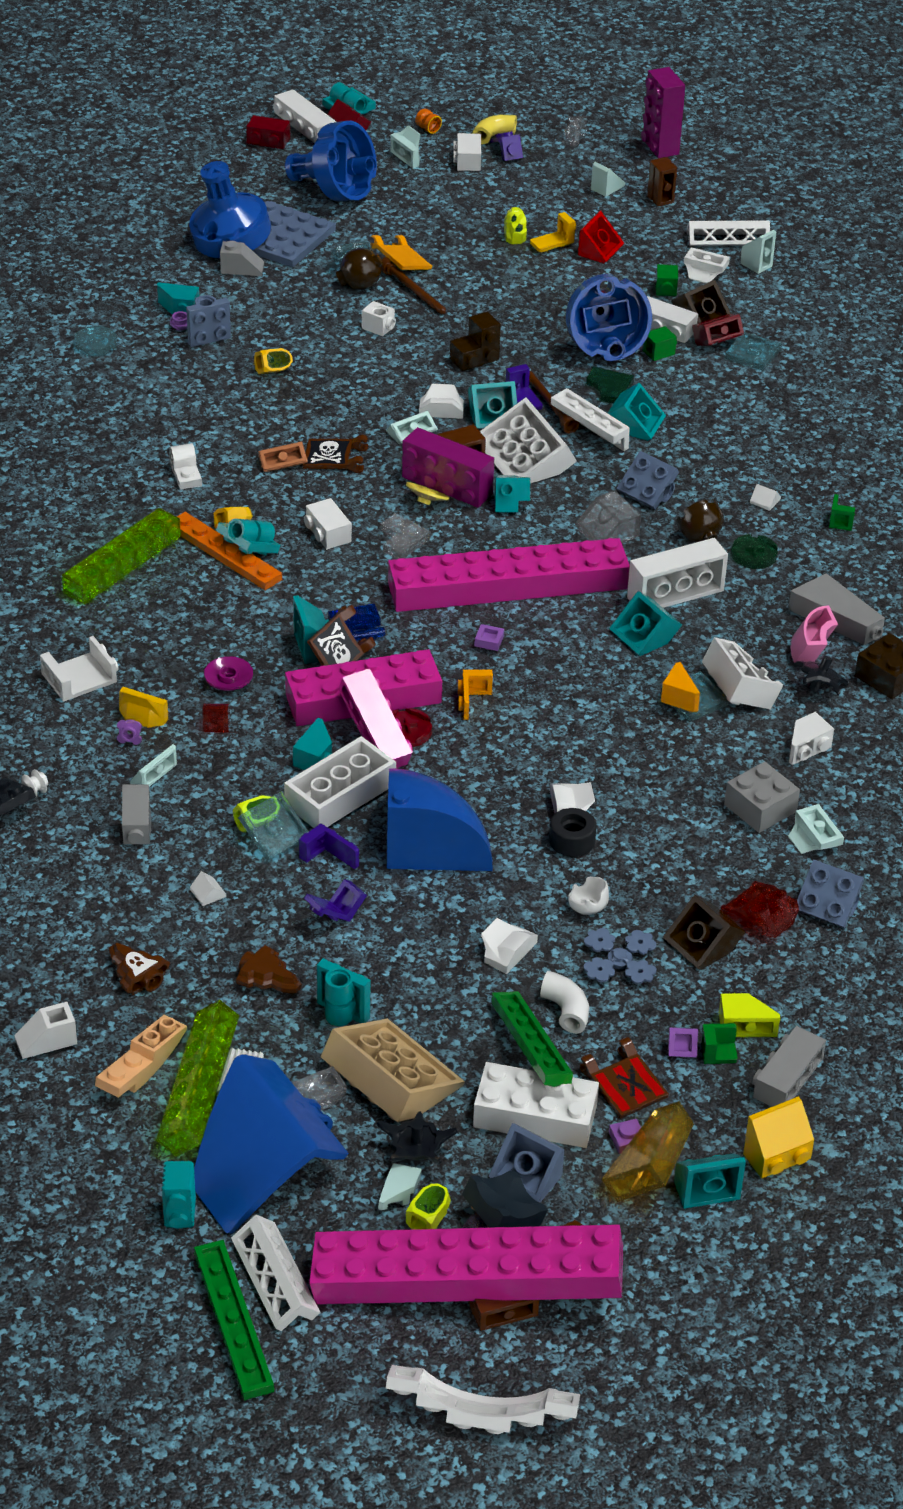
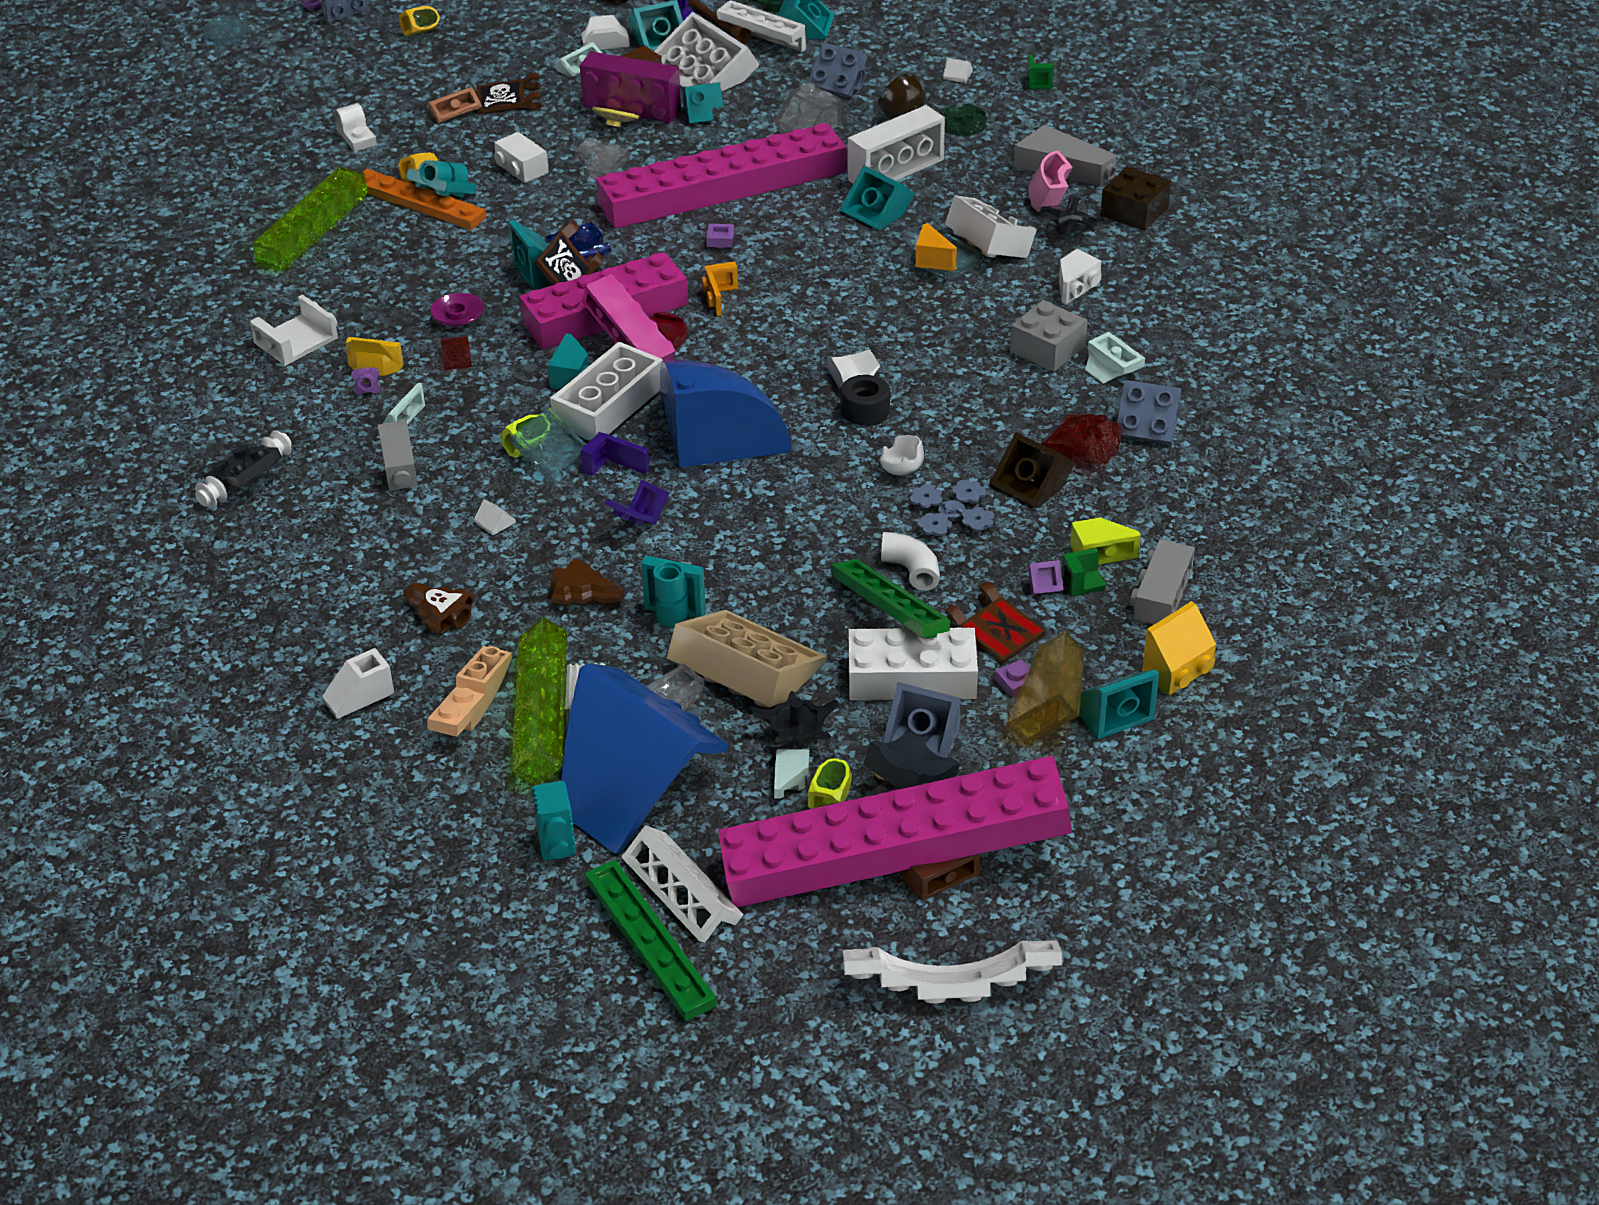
camera: 10 degrees left, 0 degrees up
(506, 944) = (829, 517): white slope -> none

